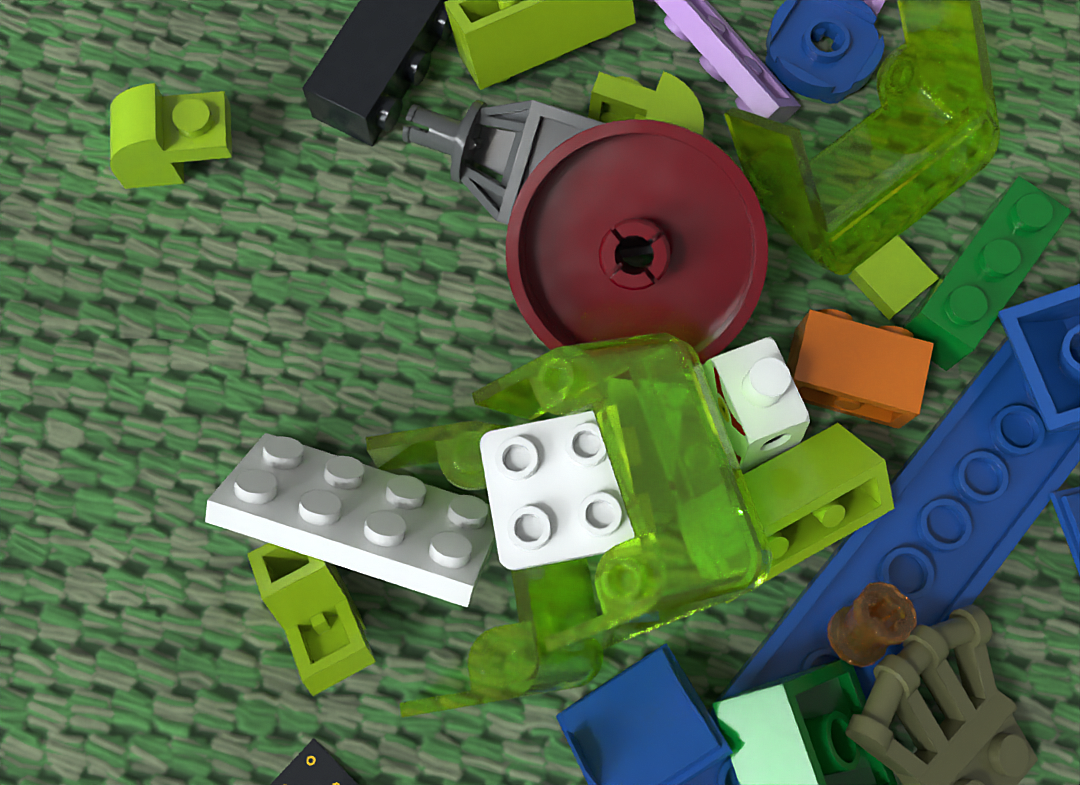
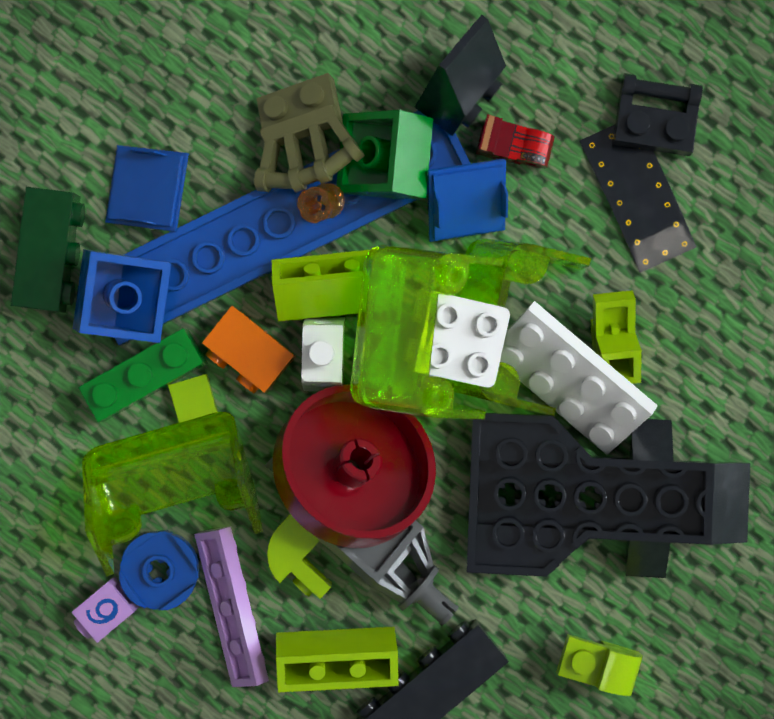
camera: 155 degrees left, 15 degrees up
(183, 377) = (642, 497): none -> black piece

